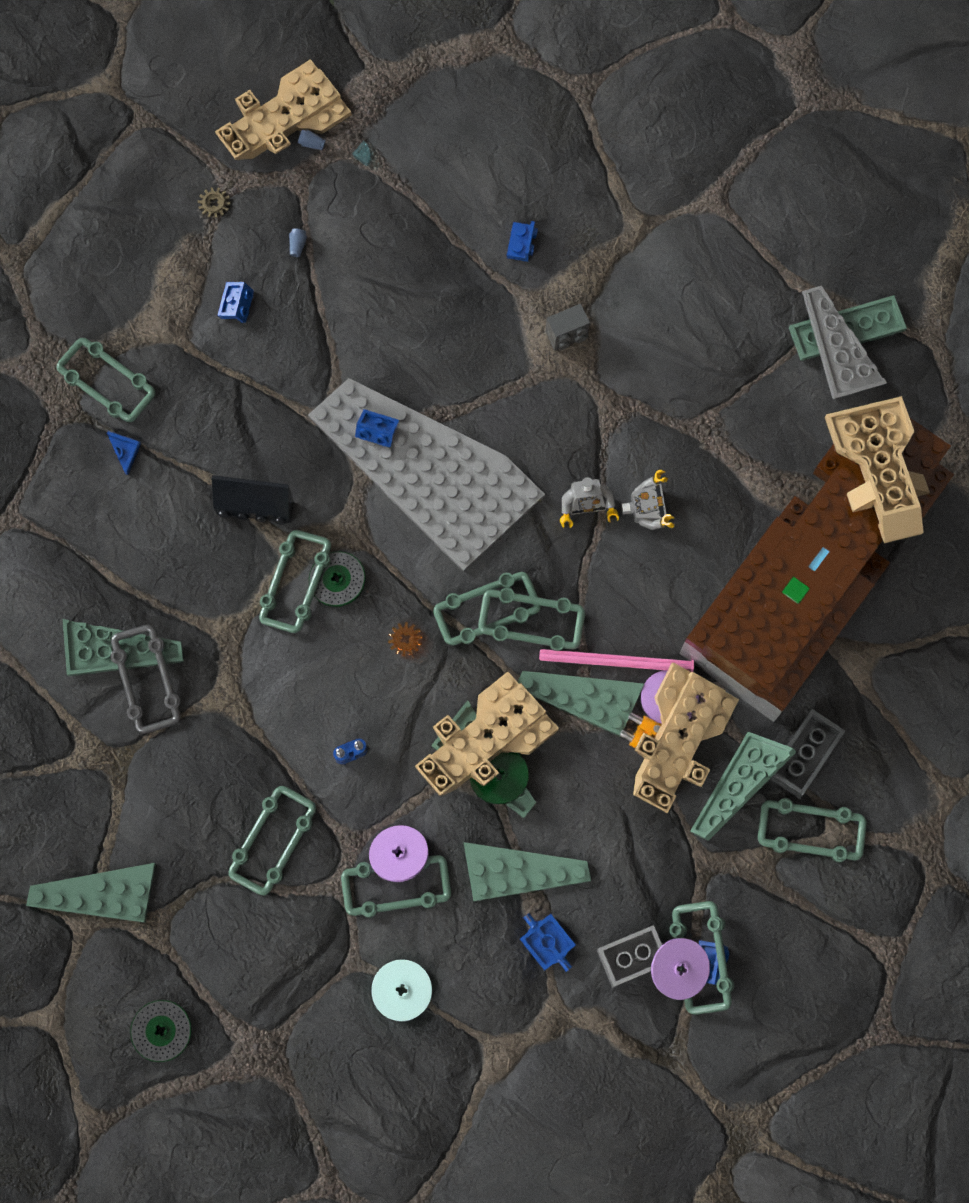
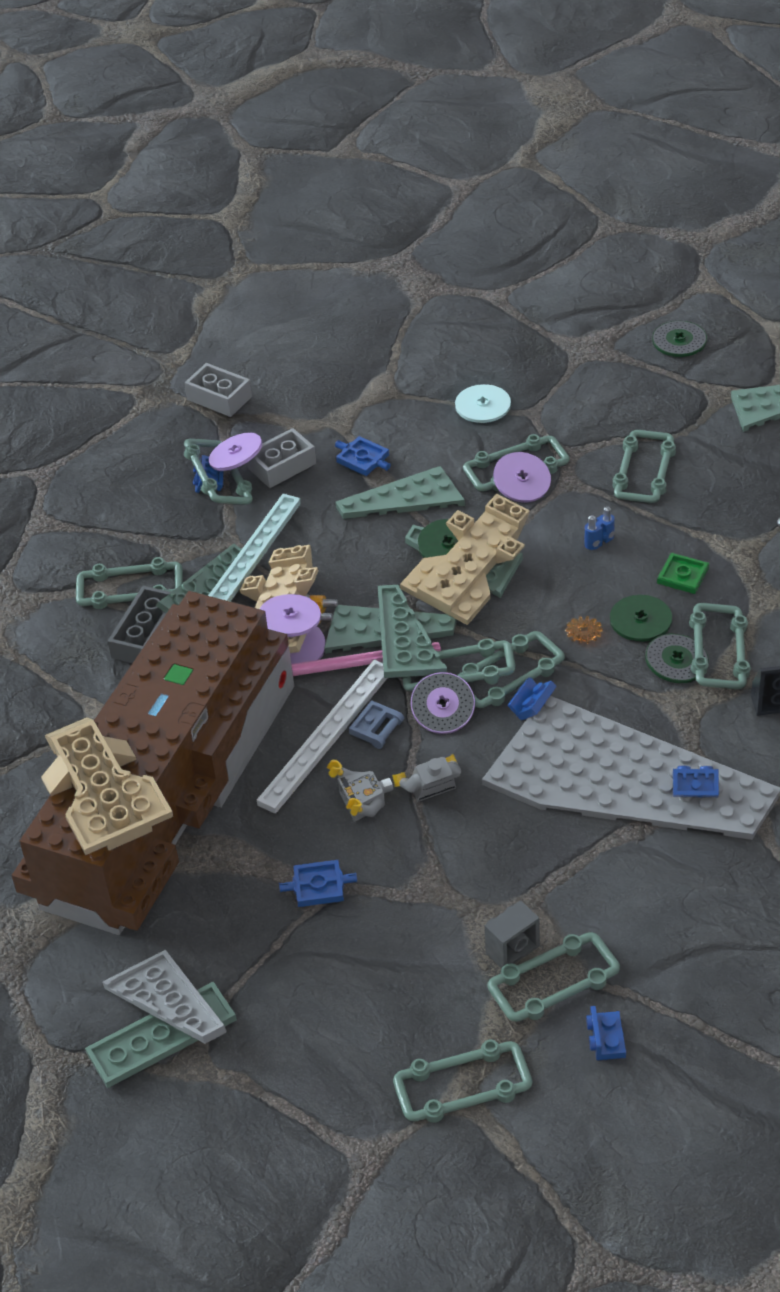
camera: 170 degrees right, 30 degrees down
(291, 682) = (683, 573): none -> green tile
(356, 650) = (627, 613): none -> dark green piece
(477, 564) = (530, 698): none -> blue bracket
(514, 285) = (535, 1007): none -> sand green bar
(569, 577) = (453, 691): none -> piece
(572, 652) = (404, 641): none -> sand green wing
(608, 251) = (434, 1109): none -> sand green bar
(622, 584) = (371, 719): none -> sand blue plate
(663, 581) = (322, 738): none -> white plate
(670, 683) = (291, 614): none -> lavender piece
(679, 1095) = (218, 389): none -> light grey brick
(690, 819) = (255, 548): none -> light aqua plate
(703, 429) = (318, 883): none -> blue plate

